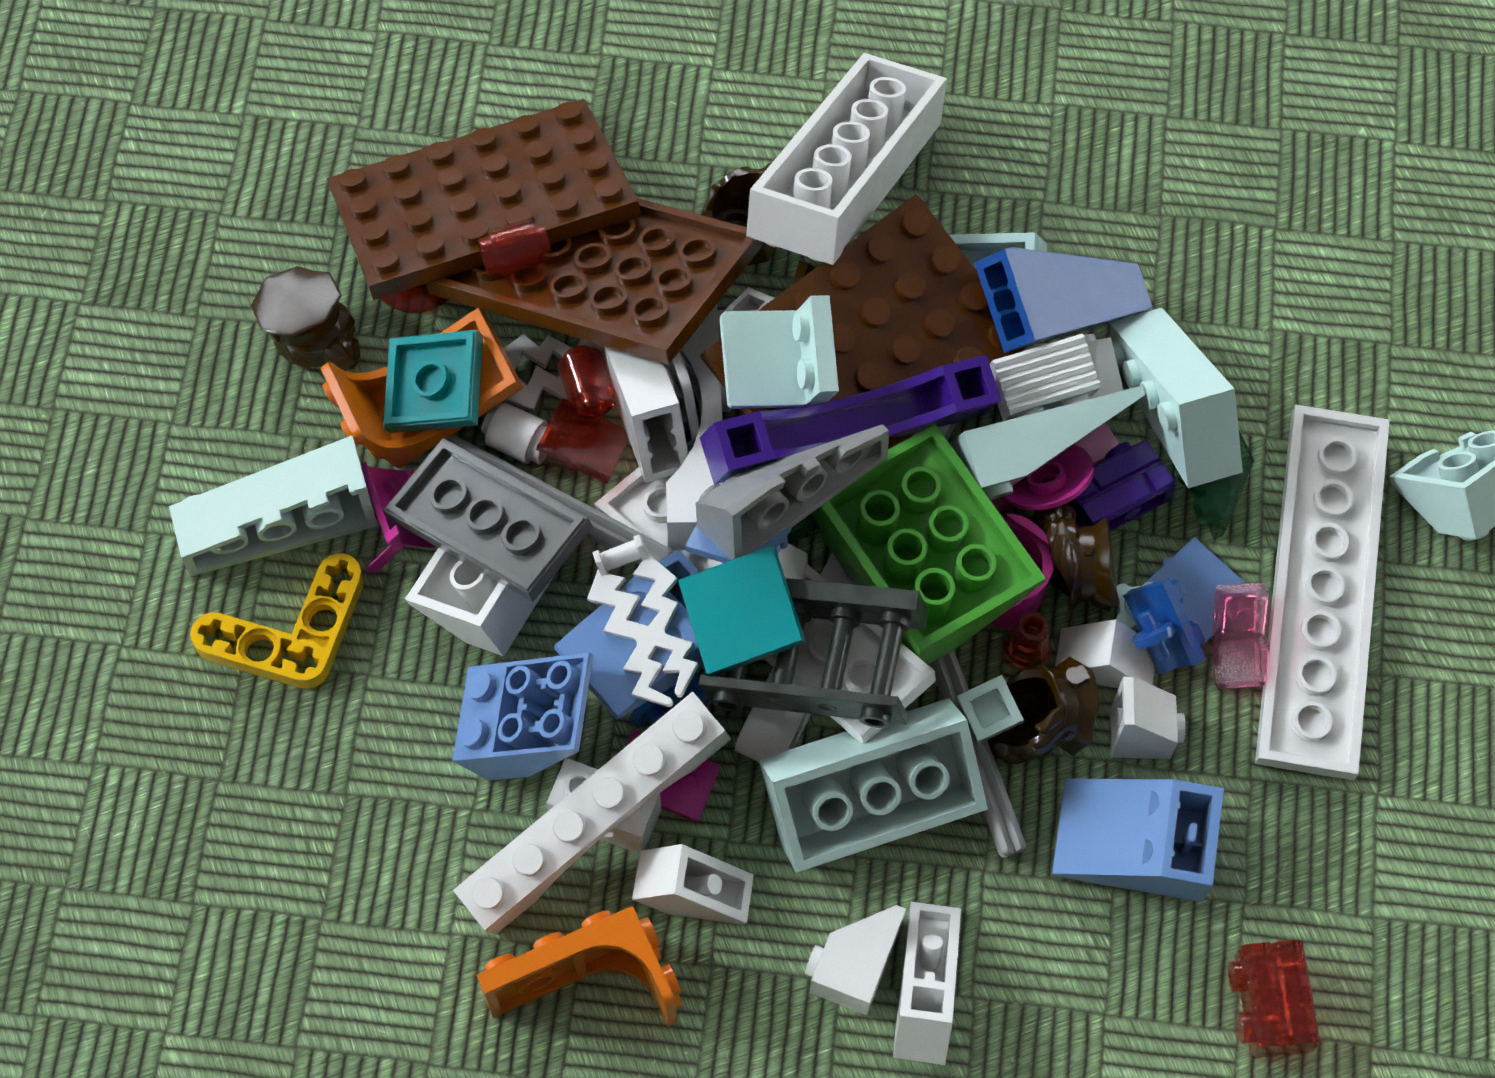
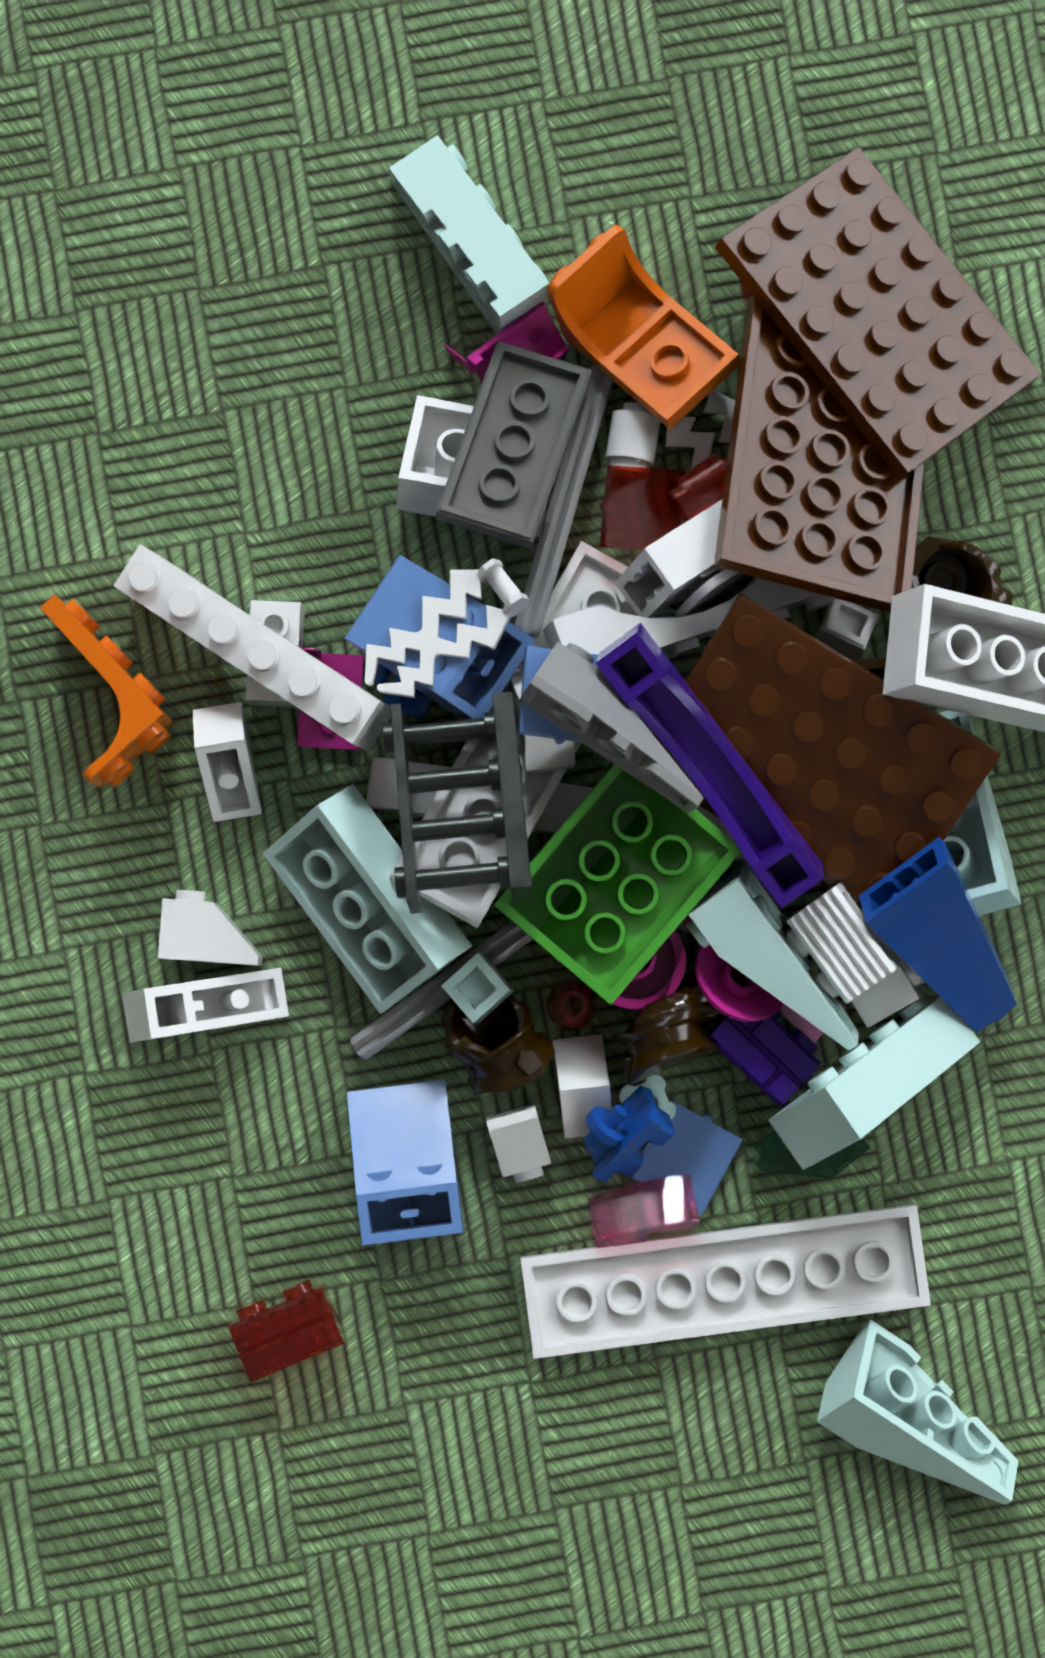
camera: 70 degrees right, 20 degrees up
(302, 641) = (359, 313): yellow beam -> none
(307, 319) = (686, 188): dark brown piece -> none
(433, 381) = (647, 339): teal tile -> none
(514, 247) = (807, 366): clear red brick -> none
(522, 715) = (326, 547): medium blue slope -> none
(741, 611) = (470, 721): teal tile -> none
(779, 356) = (750, 670): light aqua bracket -> none

